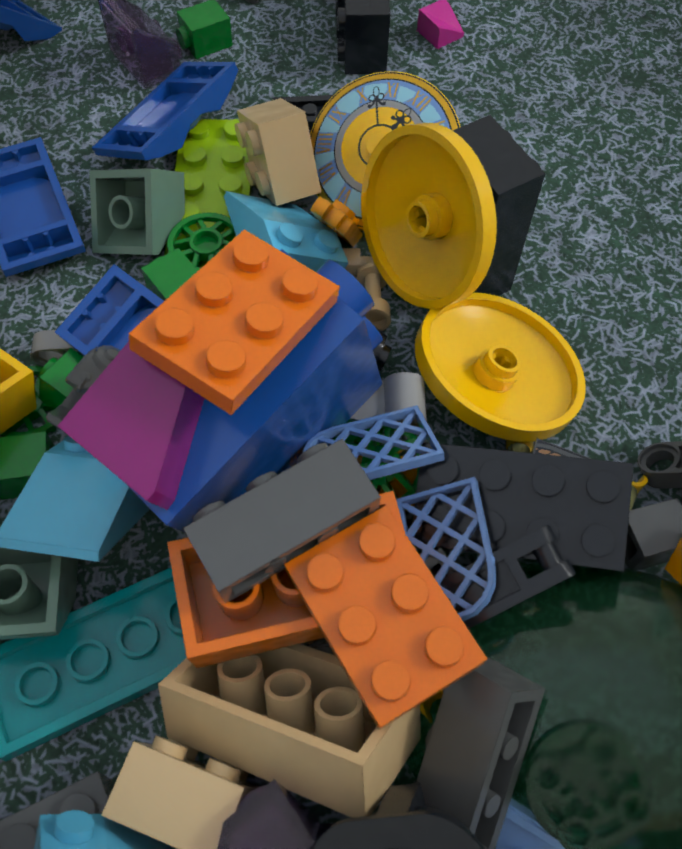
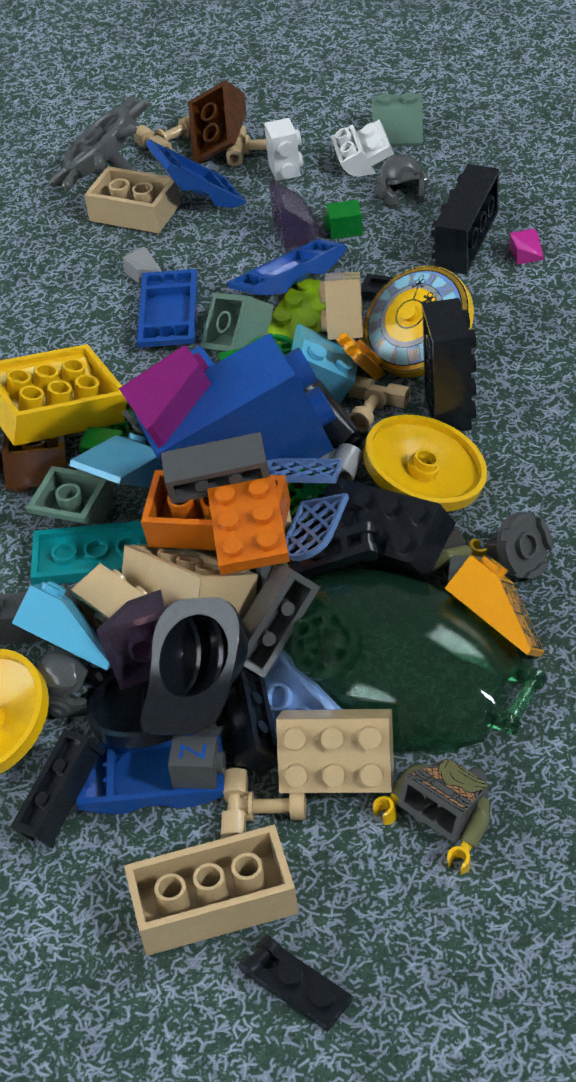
camera: 30 degrees right, 15 degrees down
(234, 320) = (225, 355): orange plate -> none
(428, 215) = (401, 355): yellow dish -> none

